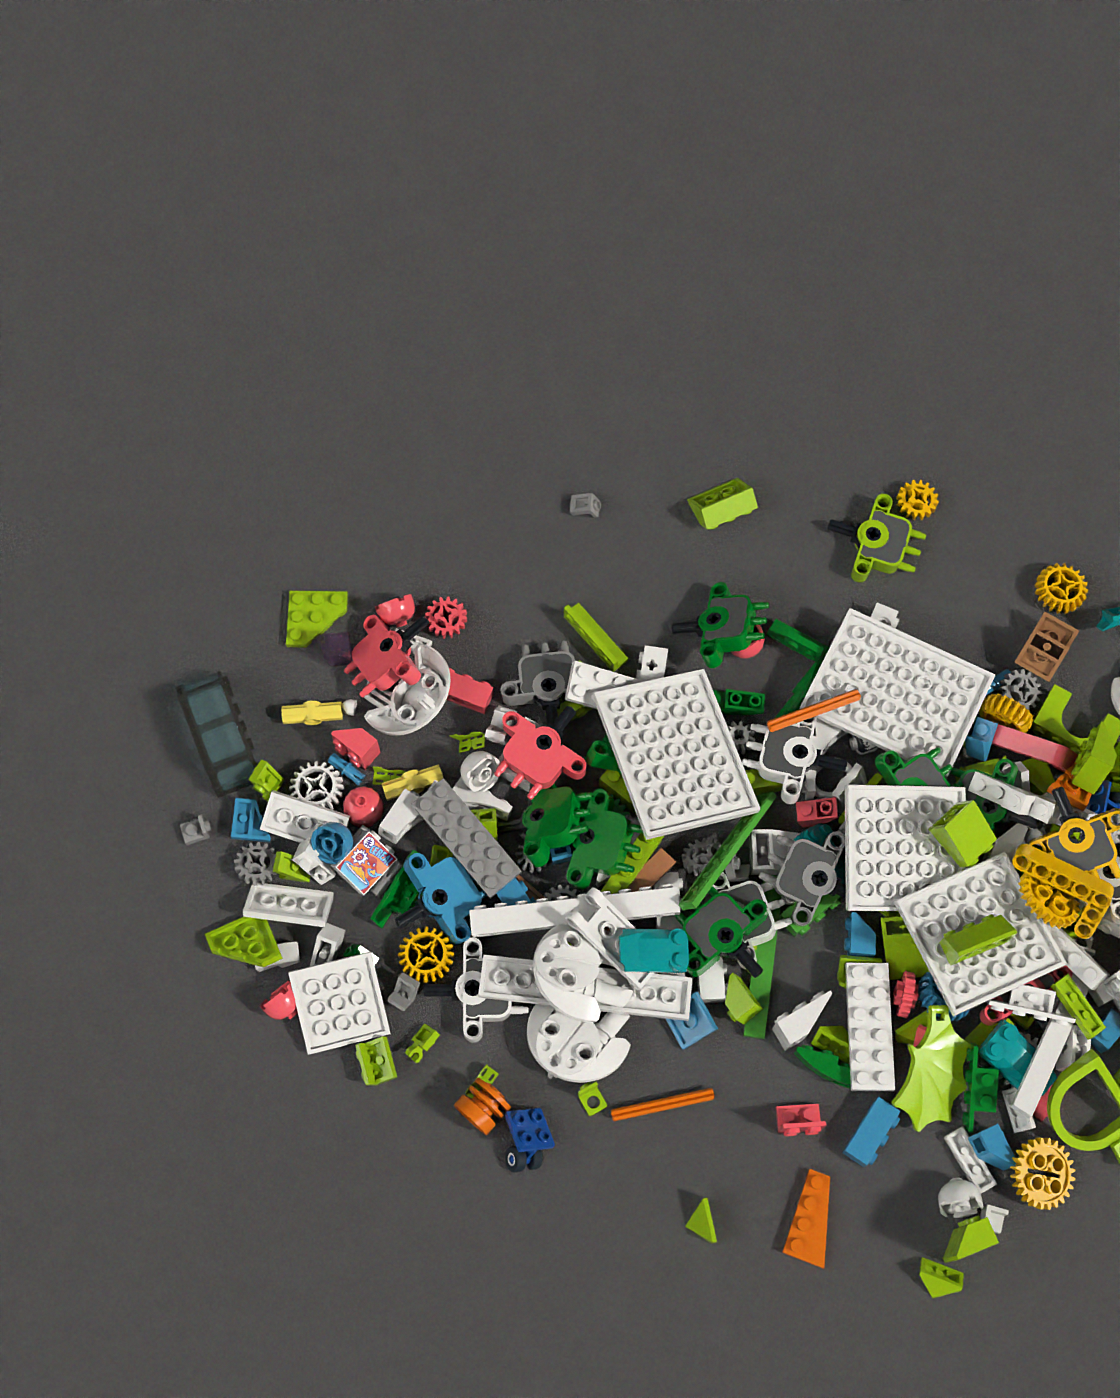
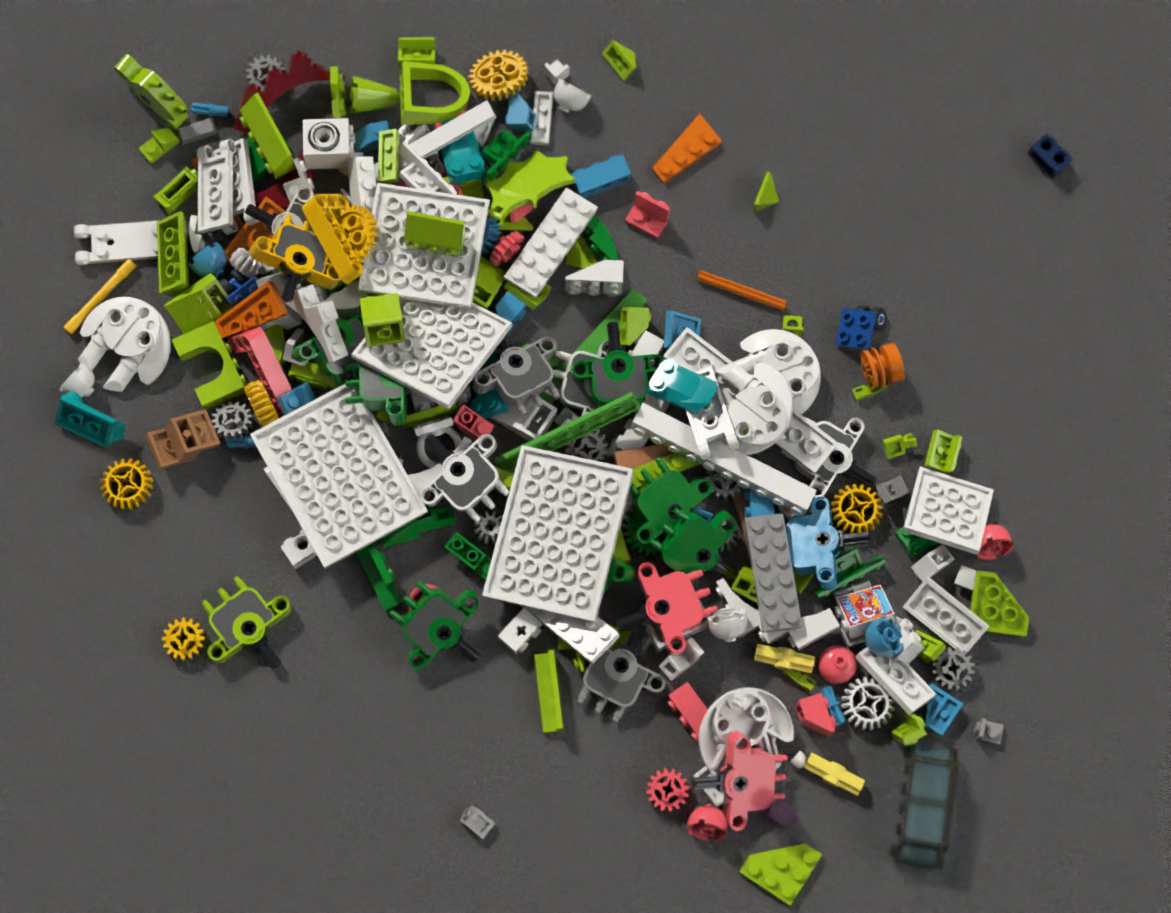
camera: 150 degrees left, 5 degrees up
(470, 743) = (715, 662): lime piece -> none
(723, 503) = (354, 745): lime slope -> none
(813, 710) = (422, 495): orange axle -> none
(970, 1237) = (589, 61): lime slope -> none
(1094, 760) = (230, 314): lime slope -> none

